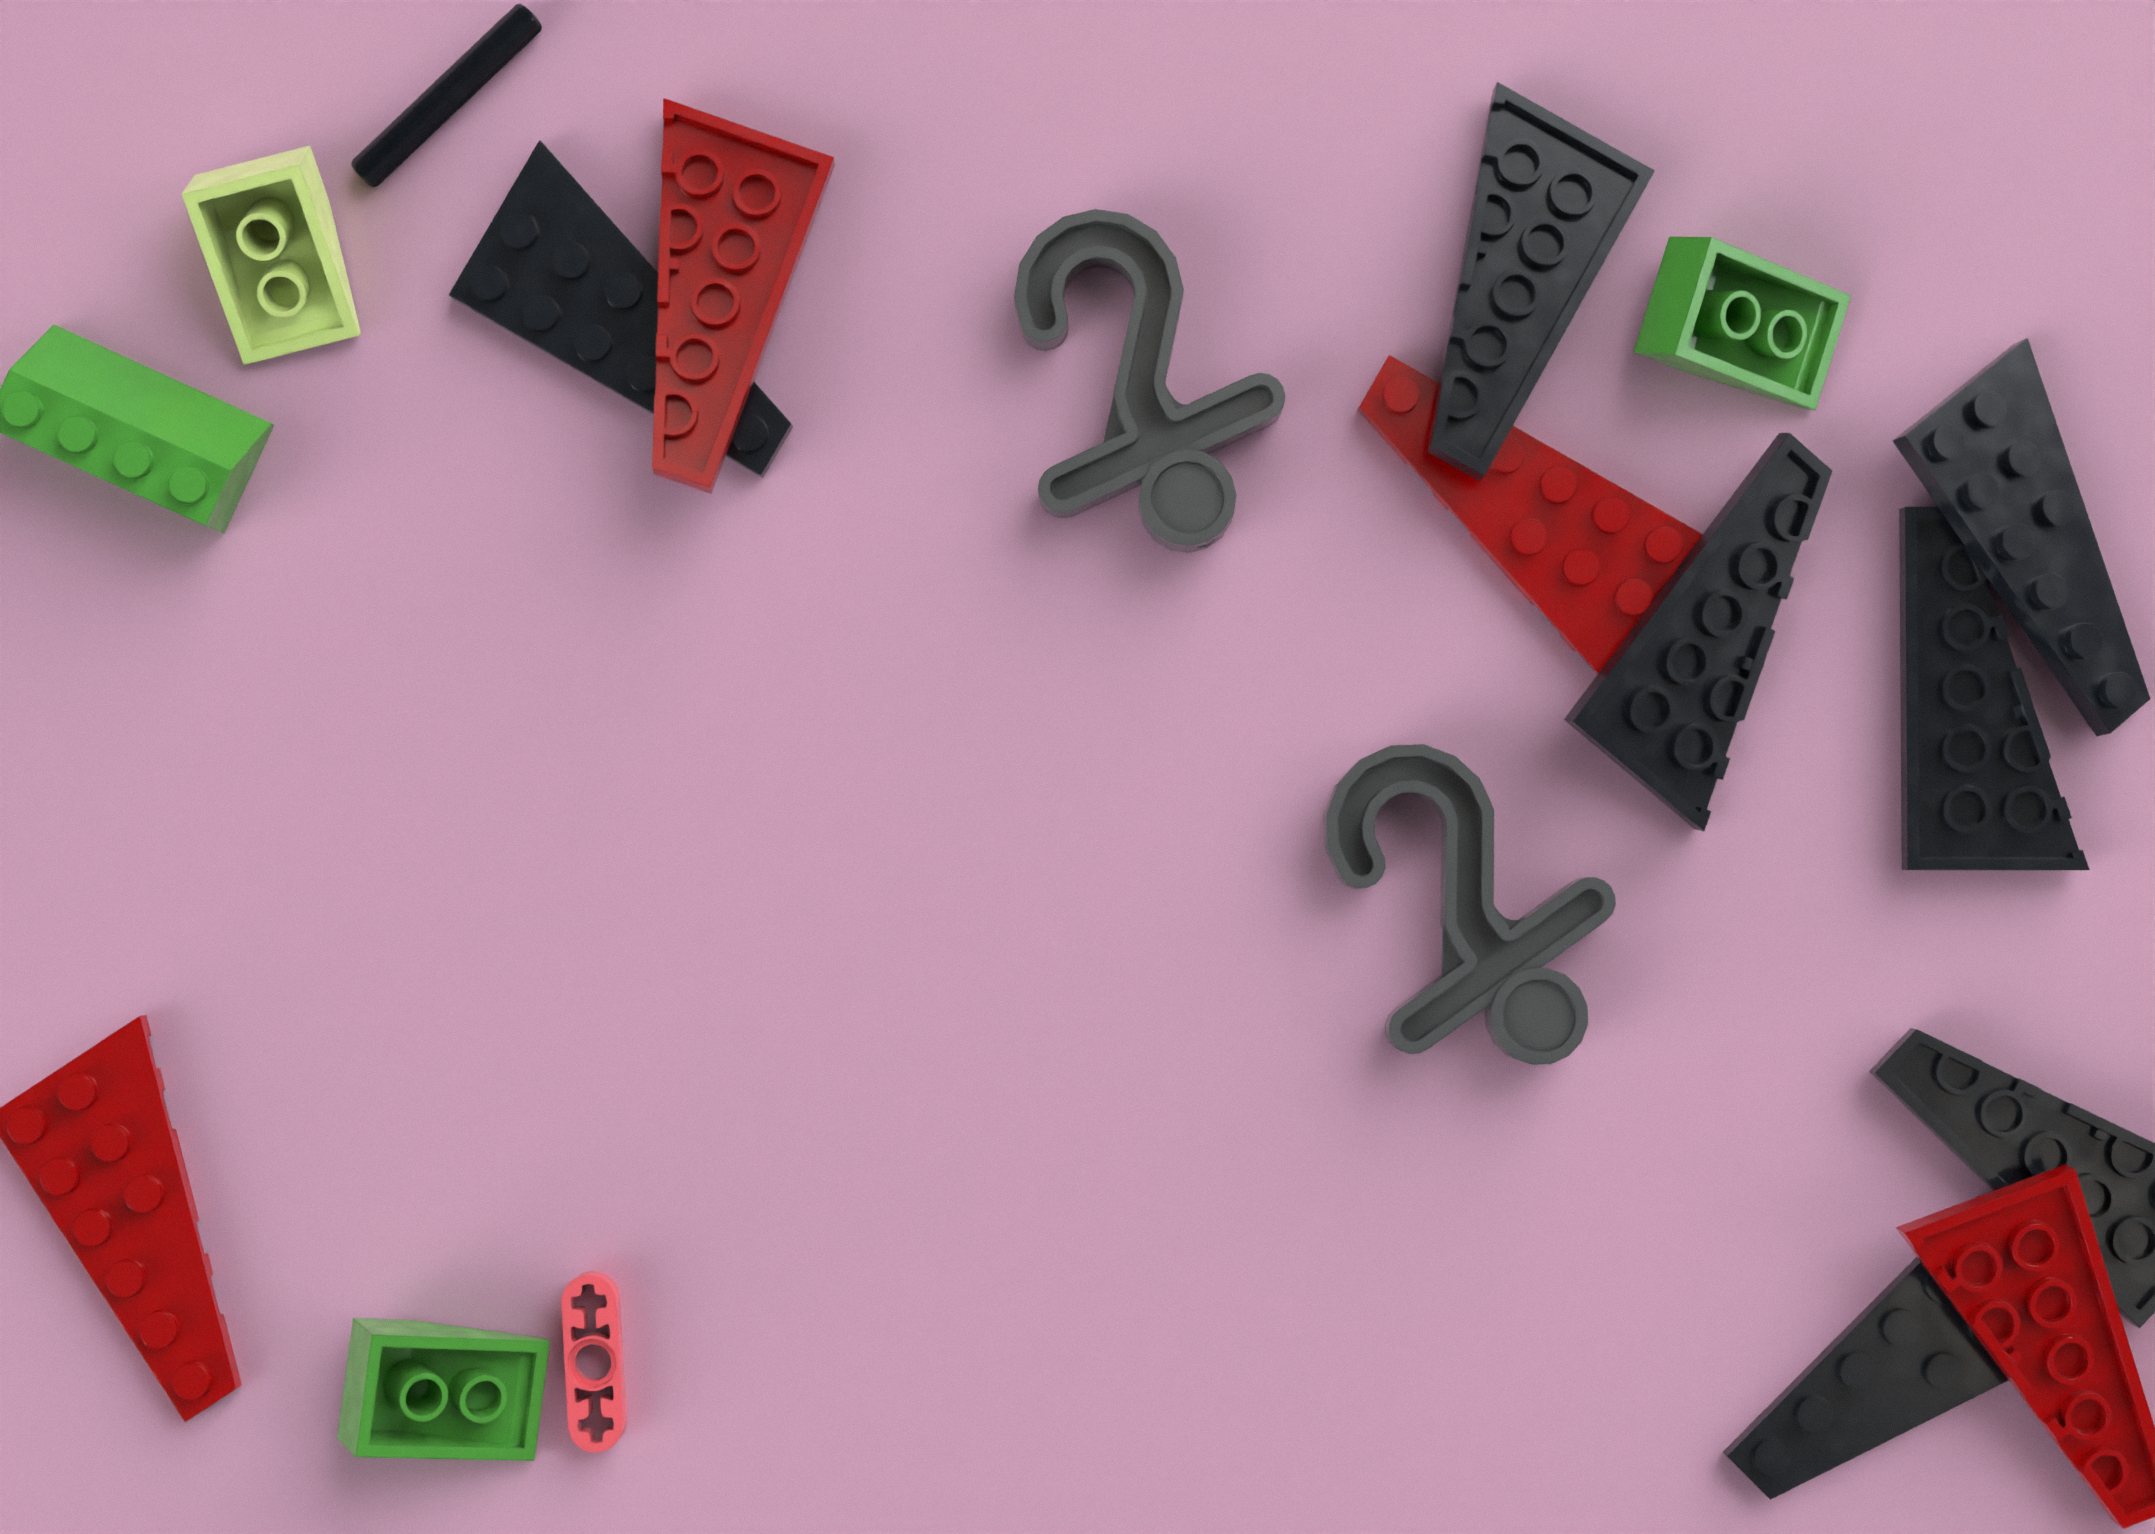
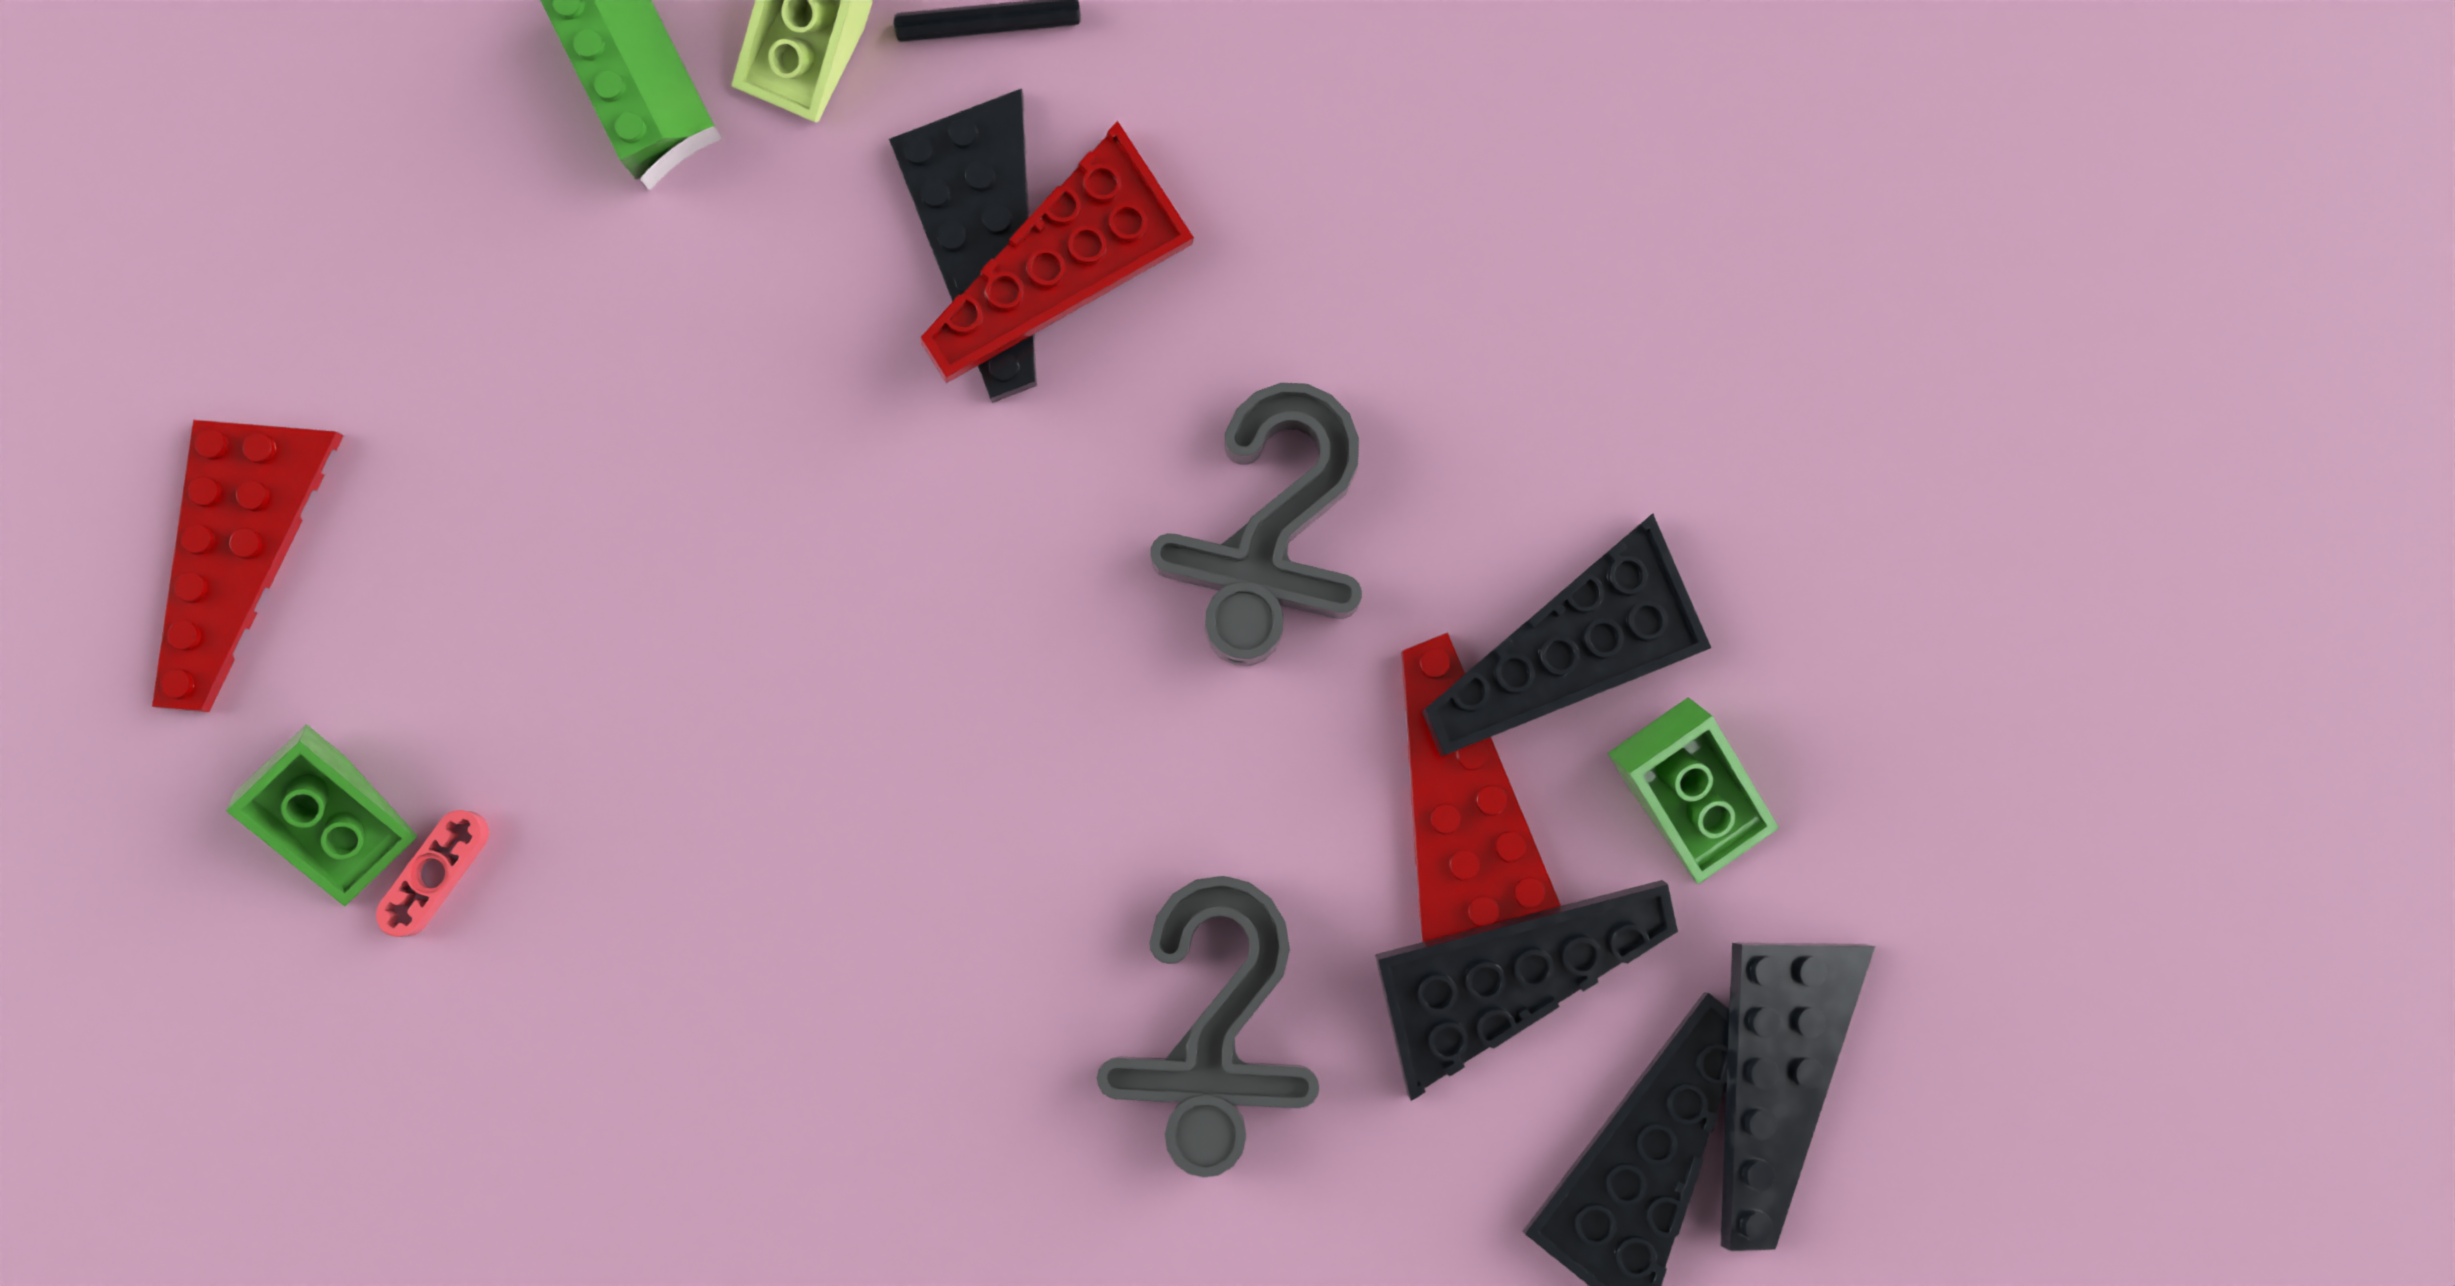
camera: 45 degrees right, 5 degrees down
(250, 473) = (678, 154): none -> white sticker

